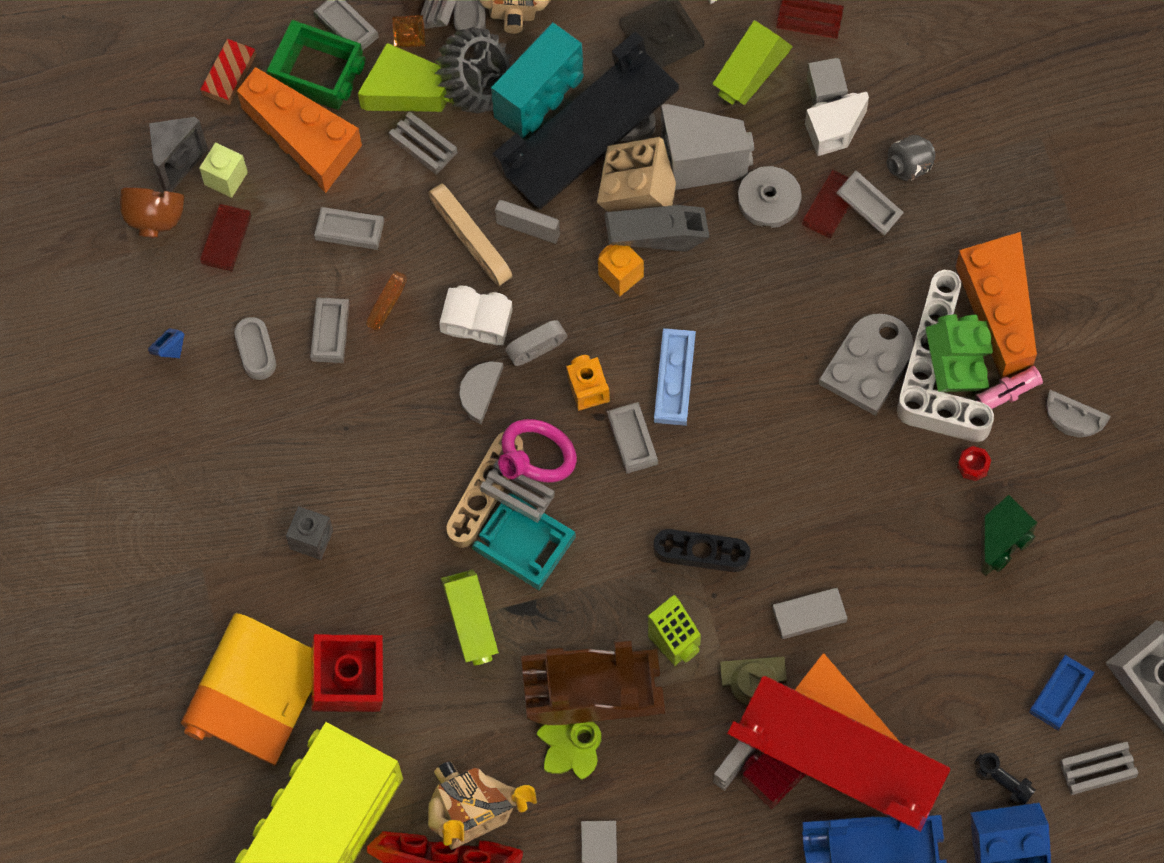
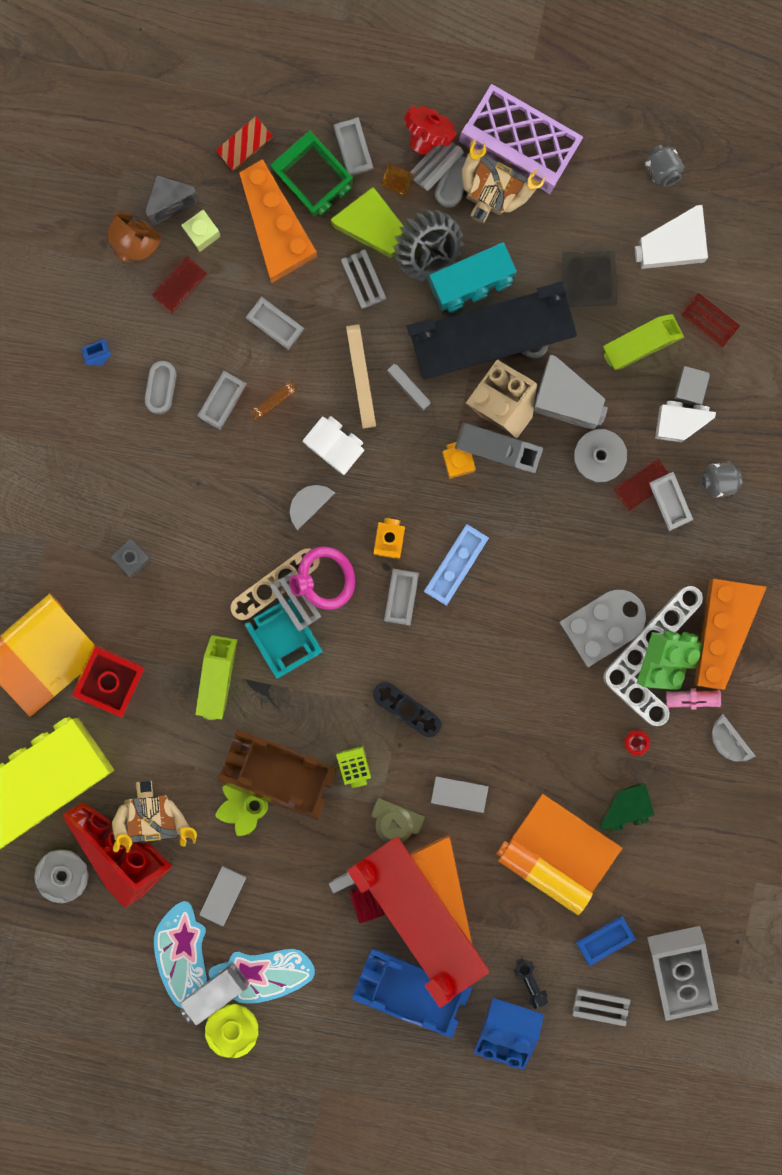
camera: 20 degrees right, 20 degrees up
(536, 343) = (367, 489): light grey beam -> none
(956, 622) = (559, 854): none -> orange door

